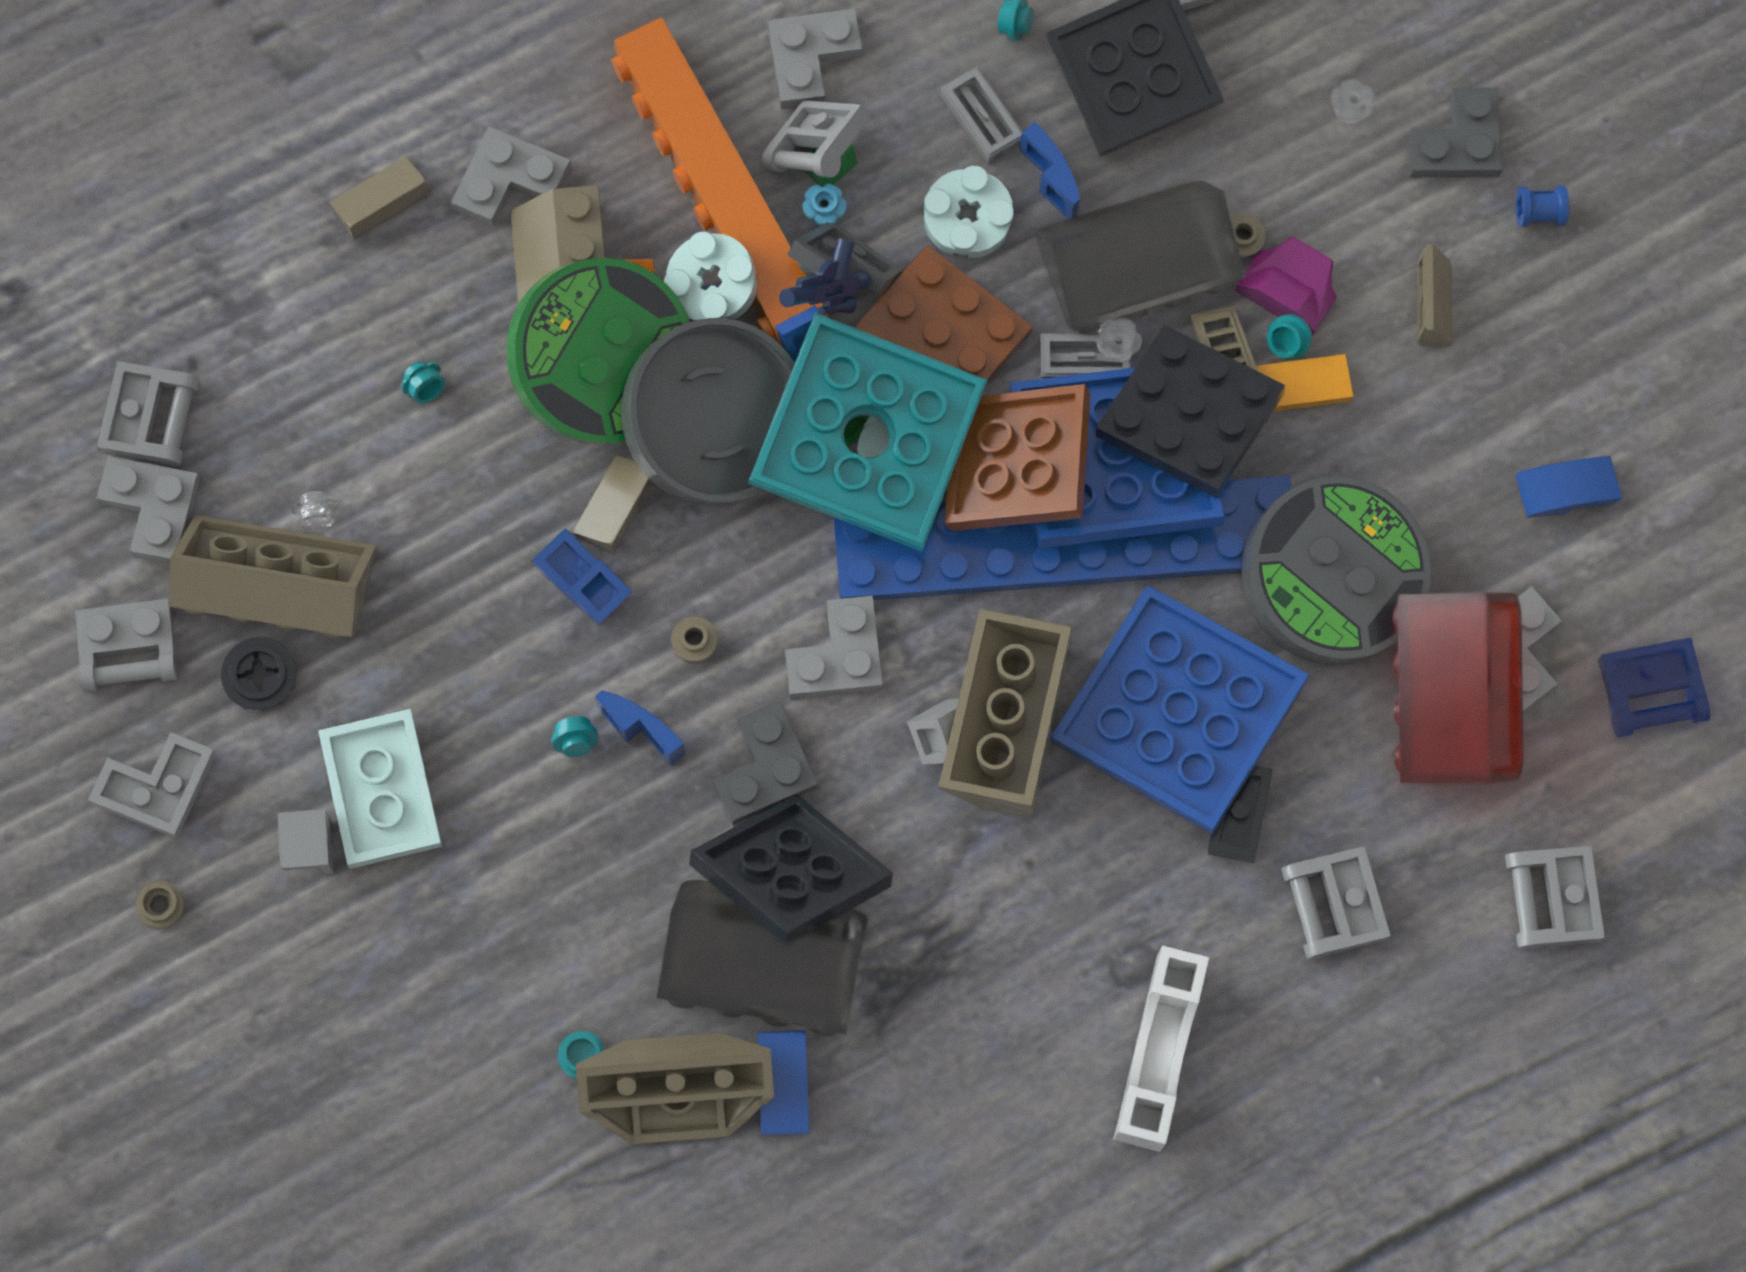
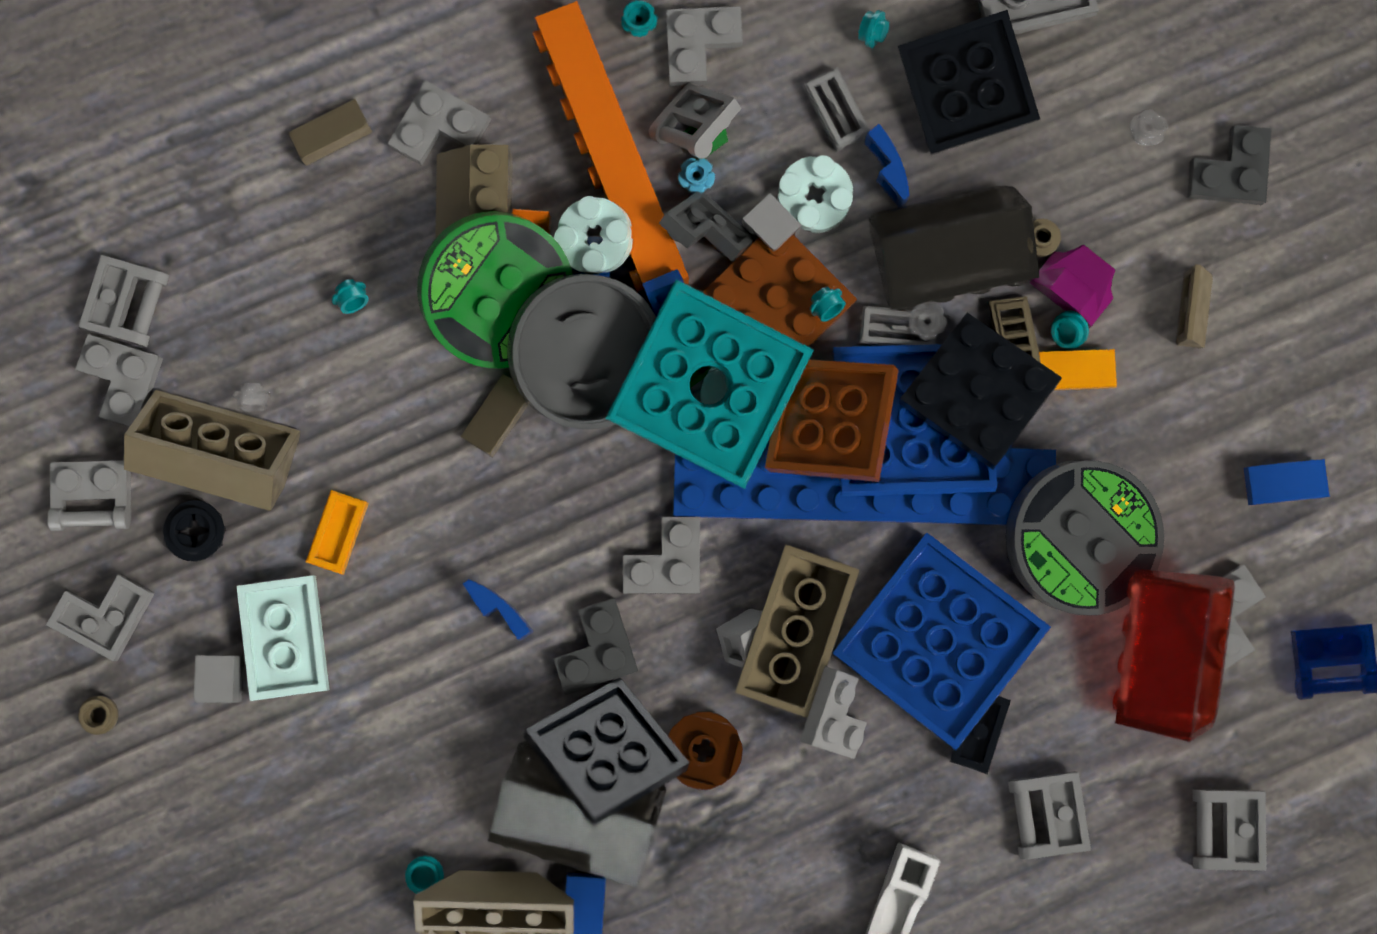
camera: 10 degrees right, 10 degrees up
(433, 659) = (337, 532): none -> light orange tile
(574, 736) = (444, 611): teal plate -> none
(581, 576) = (464, 475): blue slope -> none
(699, 652) = (562, 538): dark tan plate -> none
(732, 23) = (635, 9): none -> teal plate
(830, 284) = (692, 257): dark blue piece -> none
(919, 246) = (771, 222): none -> light grey panel
(929, 852) = (722, 737): none -> reddish brown plate
(997, 330) = (827, 303): none -> teal plate
(1053, 809) = (827, 721): none -> light grey plate
(1542, 206) = (1296, 237): blue bush -> none

